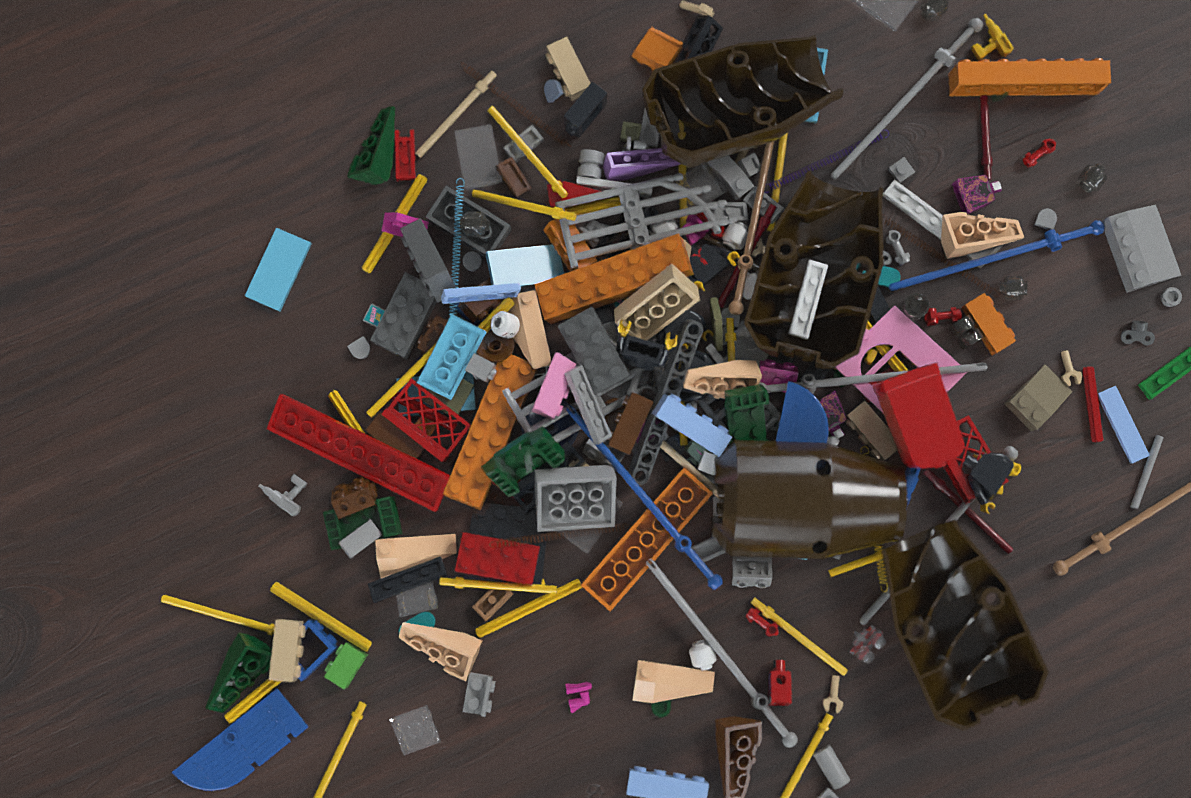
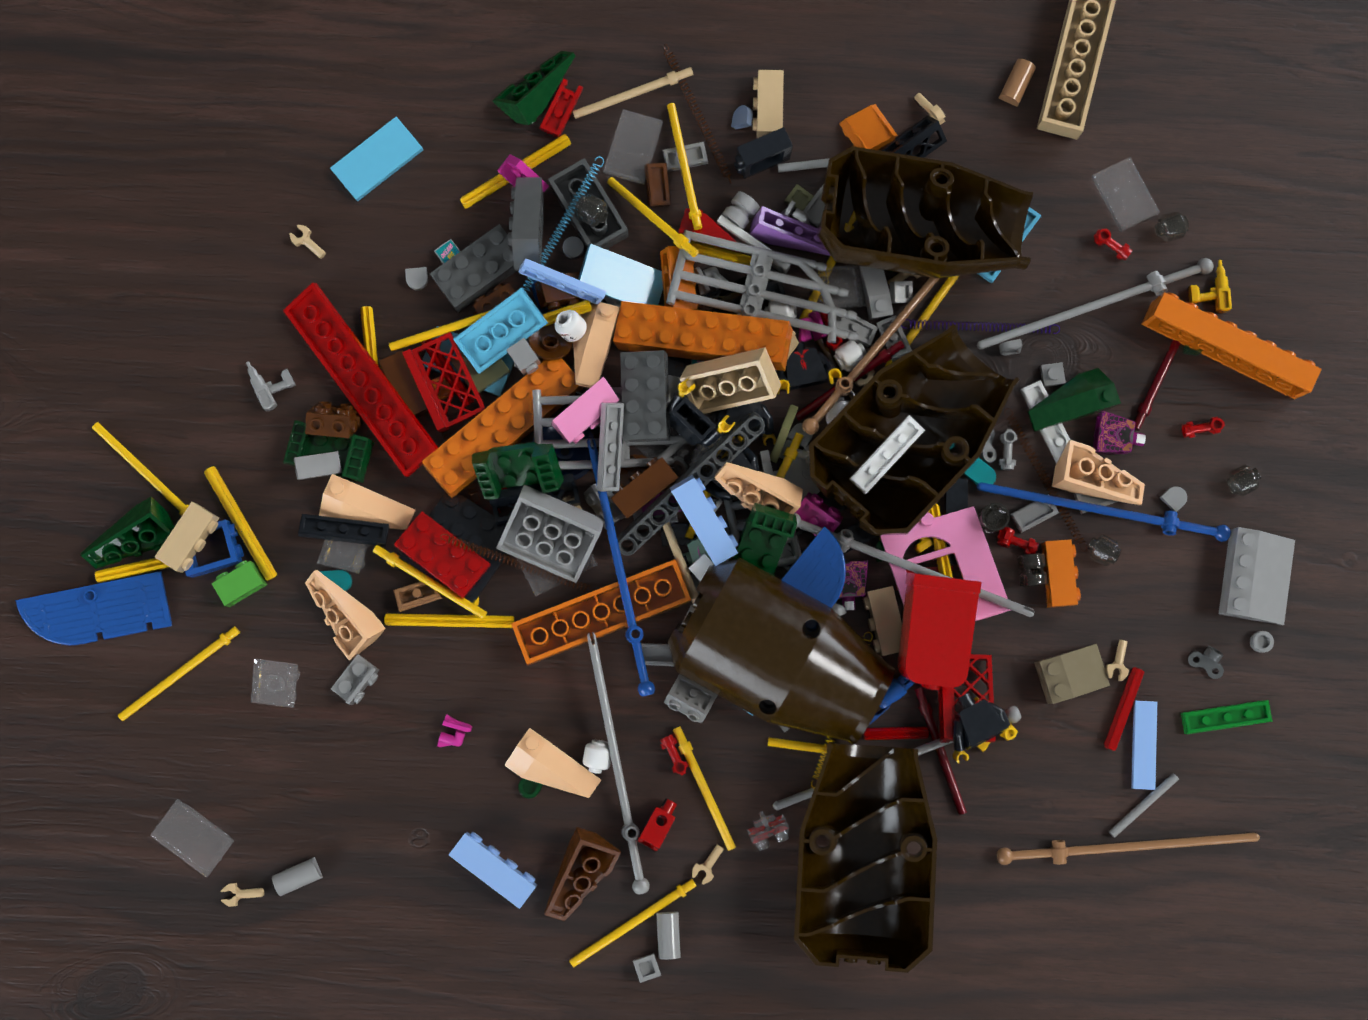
camera: 20 degrees right, 0 degrees up
(256, 364) = (305, 240): none -> tan bar
(621, 103) = (803, 165): none -> light grey bar
(858, 165) = (1010, 347): none -> light grey tile
(886, 41) = (1104, 237): none -> red bar
(928, 514) = (896, 733): none -> red axle
(931, 178) = (1079, 397): none -> dark green wedge
(943, 289) = (1032, 515): none -> light grey tile

